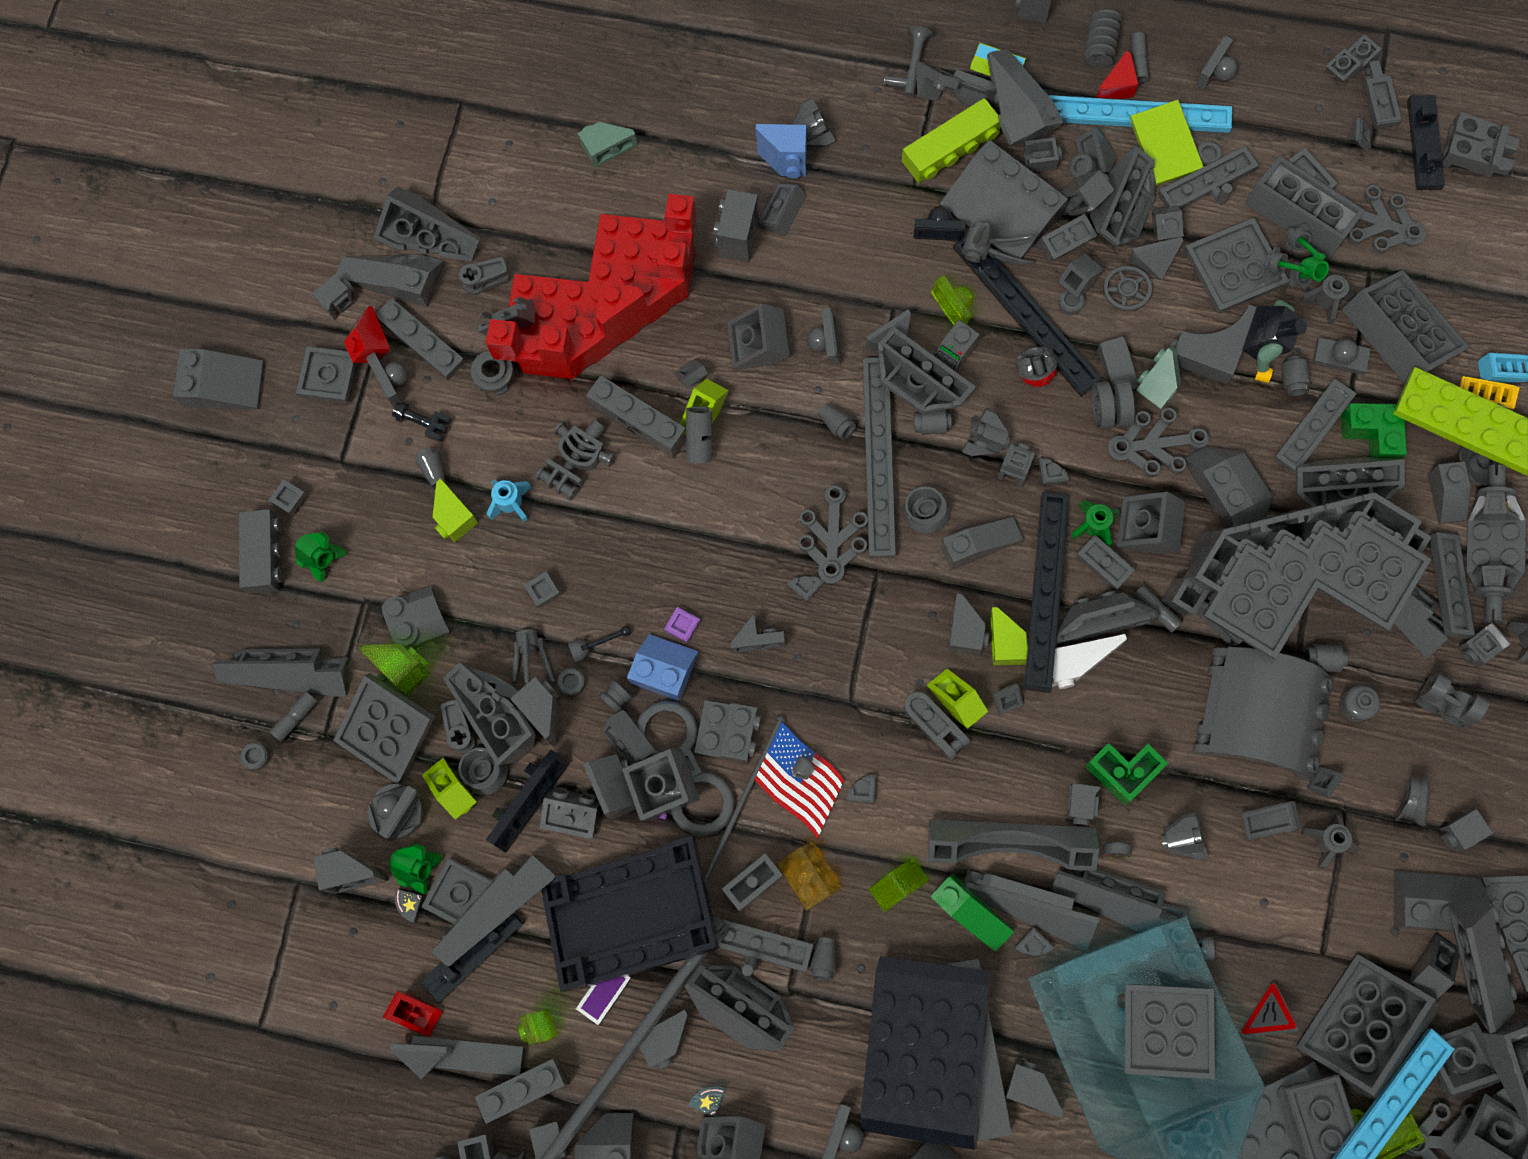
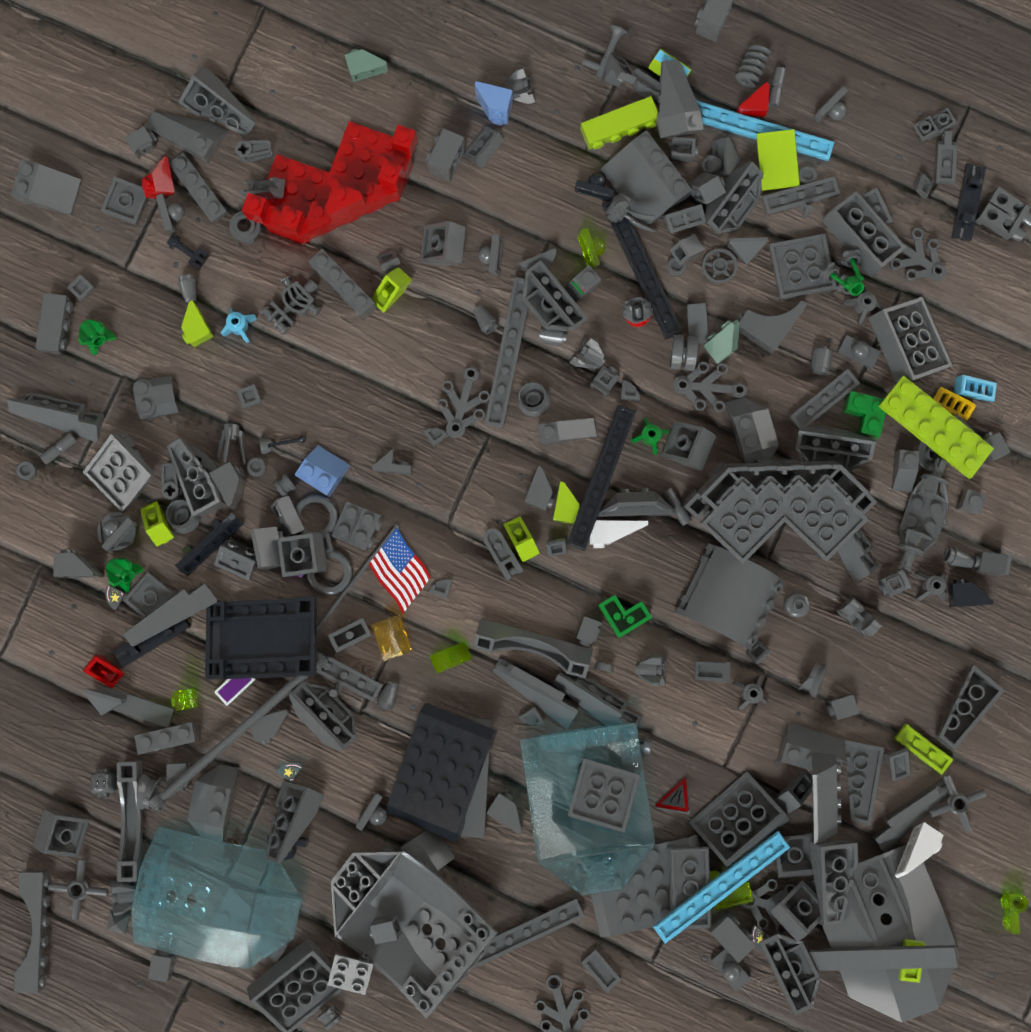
camera: 10 degrees right, 10 degrees up
(401, 666) = (136, 430): clear neon green slope -> none
(682, 625) = (342, 443): medium lavender tile -> none
(698, 434) = (383, 309): dark grey pin -> none
(803, 768) = (403, 564): dark grey piece -> none
(972, 912) = (494, 686): green slope -> none
(1105, 563) = (649, 466): dark grey plate -> none
(1167, 222) = (760, 223): dark grey brick -> none
(1272, 335) = (810, 328): black torso -> none
(1328, 657) = (783, 567): dark grey brick -> none
(1452, 585) = (885, 536): dark grey plate -> none

